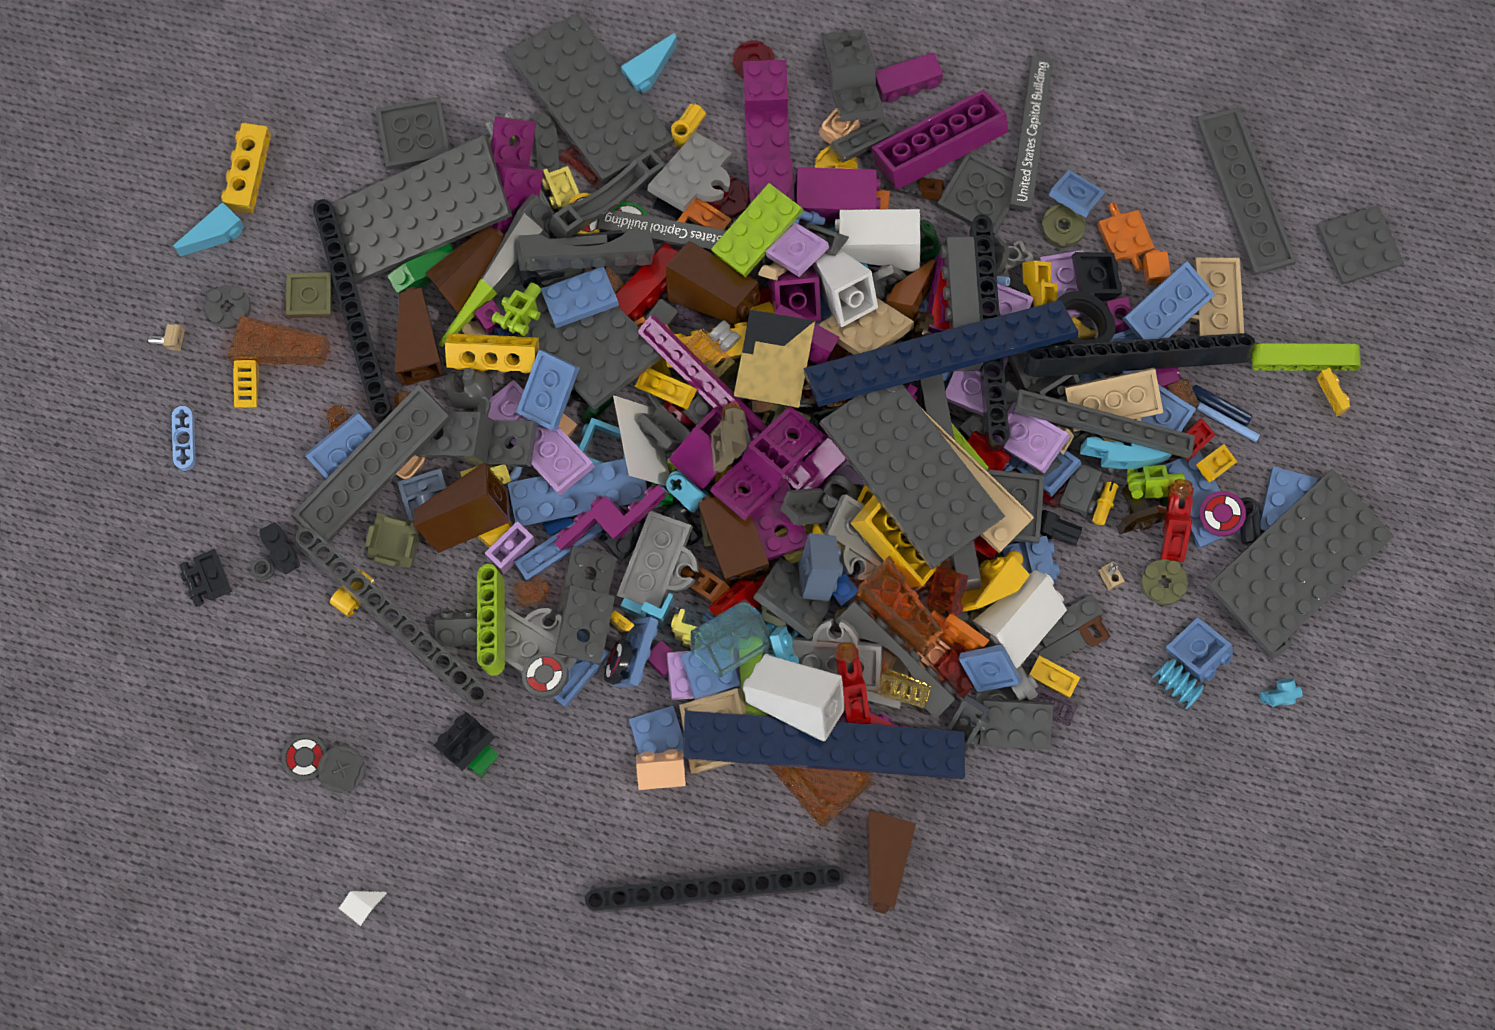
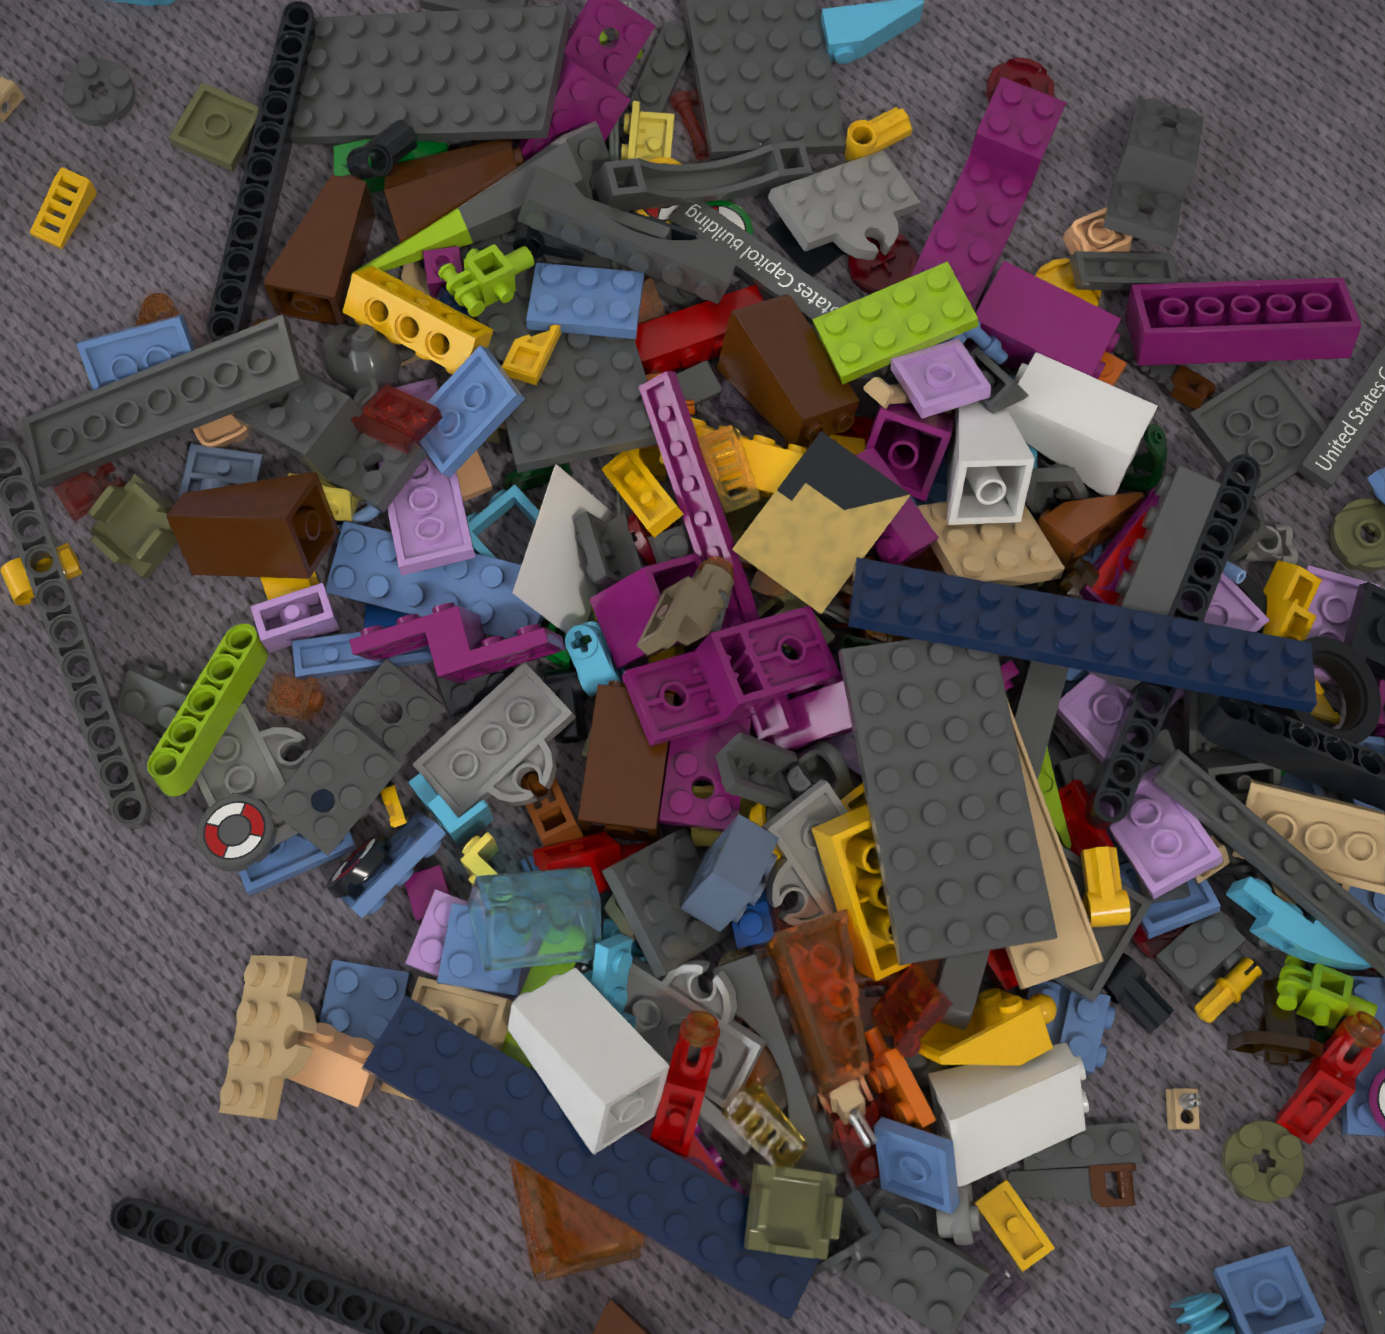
camera: 25 degrees right, 0 degrees up
(276, 344) = (131, 172): clear orange wedge -> none
(350, 538) = (83, 491): none -> clear red plate
(421, 265) = (383, 151): none -> black piece
(463, 741) = (70, 871): black plate -> none
(483, 761) = (82, 909): green panel -> none
(511, 411) = (397, 418): none -> clear red plate
(567, 342) = (530, 355): none -> yellow tile
(618, 773) = (267, 1037): none -> tan plate
(705, 215) = (833, 270): orange plate -> none
(725, 336) = (764, 457): light grey wheel -> none
(908, 77) = (1236, 213): magenta brick -> none
(939, 721) = (792, 1212): none -> olive panel
(941, 654) = (851, 1108): none -> tan piece
(1018, 484) = (1104, 897): none -> yellow piece

